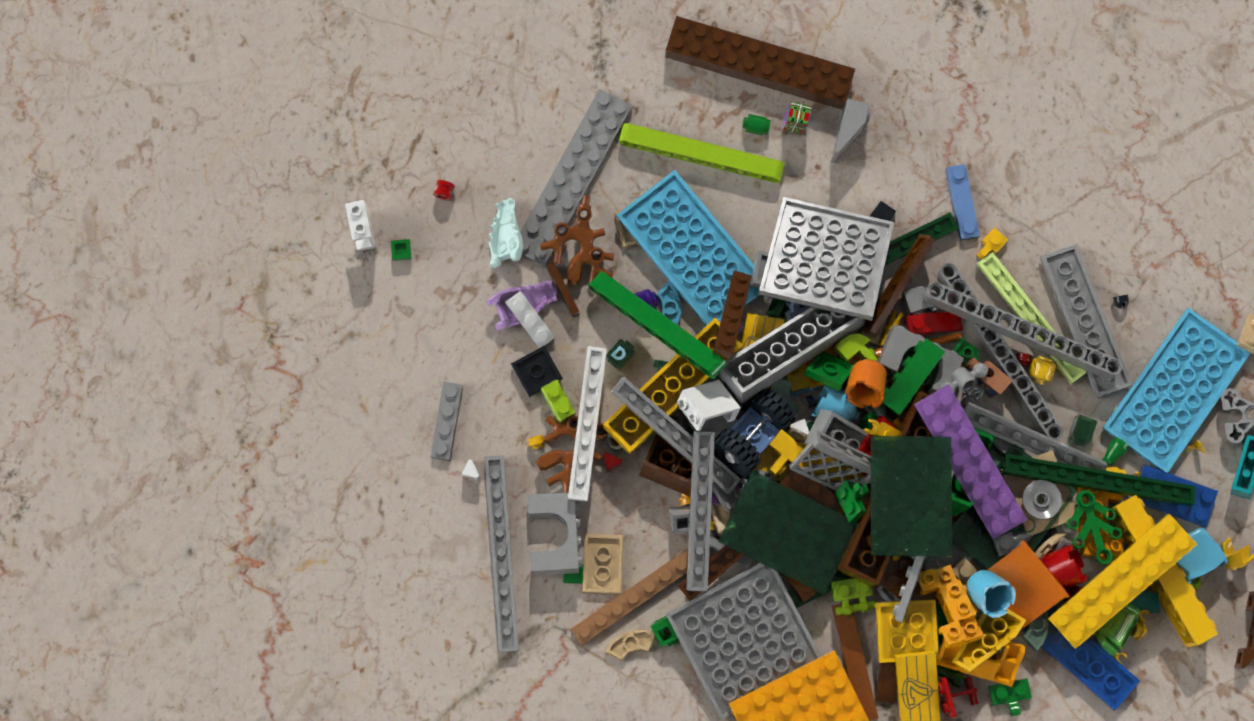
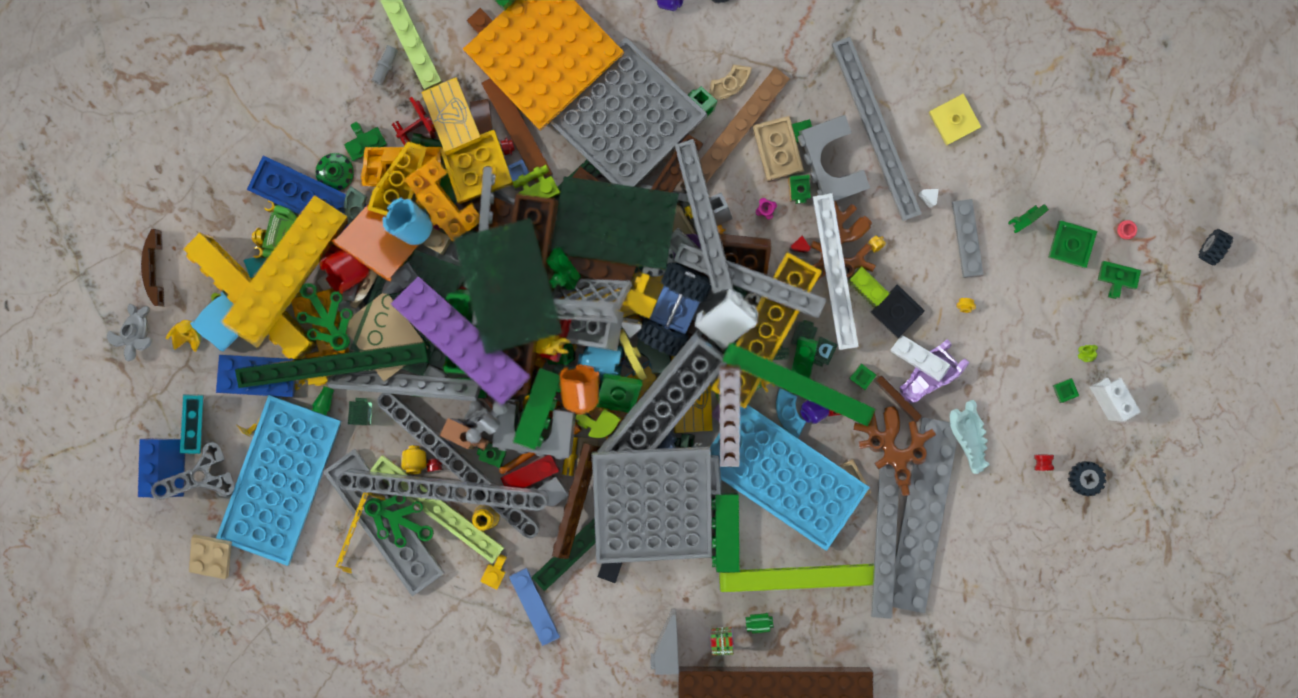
camera: 175 degrees right, 10 degrees up
(214, 339) = (1215, 247): none -> black wheel
(290, 382) = (1127, 229): none -> coral plate
(314, 340) = (1119, 277): none -> green plate
(348, 384) = (1072, 244): none -> green plate
(368, 278) = (1087, 353): none -> lime plate
(386, 417) = (1028, 218): none -> green plate
(408, 170) = (1080, 476): none -> black wheel
(421, 539) = (954, 119): none -> light yellow plate
(469, 357) = (966, 305): none -> yellow plate
(589, 320) = (862, 376): none -> green plate
(594, 523) = (794, 182): none -> green brick
(618, 158) = (885, 544): none -> light grey plate
(632, 513) = (767, 213): none -> dark pink plate
(635, 373) = (804, 329): none -> clear green brick
(641, 351) = (804, 356): none -> green plate
(762, 214) = (726, 532): none -> green brick
(806, 402) = (632, 354): none -> light yellow plate
(866, 619) = (517, 169): none -> medium blue tile
(869, 645) = (507, 147): none -> red plate
(983, 293) = (492, 517): none -> yellow plant
(1039, 679) = (344, 171): none -> green dish
(1051, 499) = (372, 324): light grey dish -> none
(1073, 318) = (395, 518): none -> green plant
(1120, 301) = (355, 553): black hinge -> none
(1133, 288) = (353, 525): none -> yellow piece

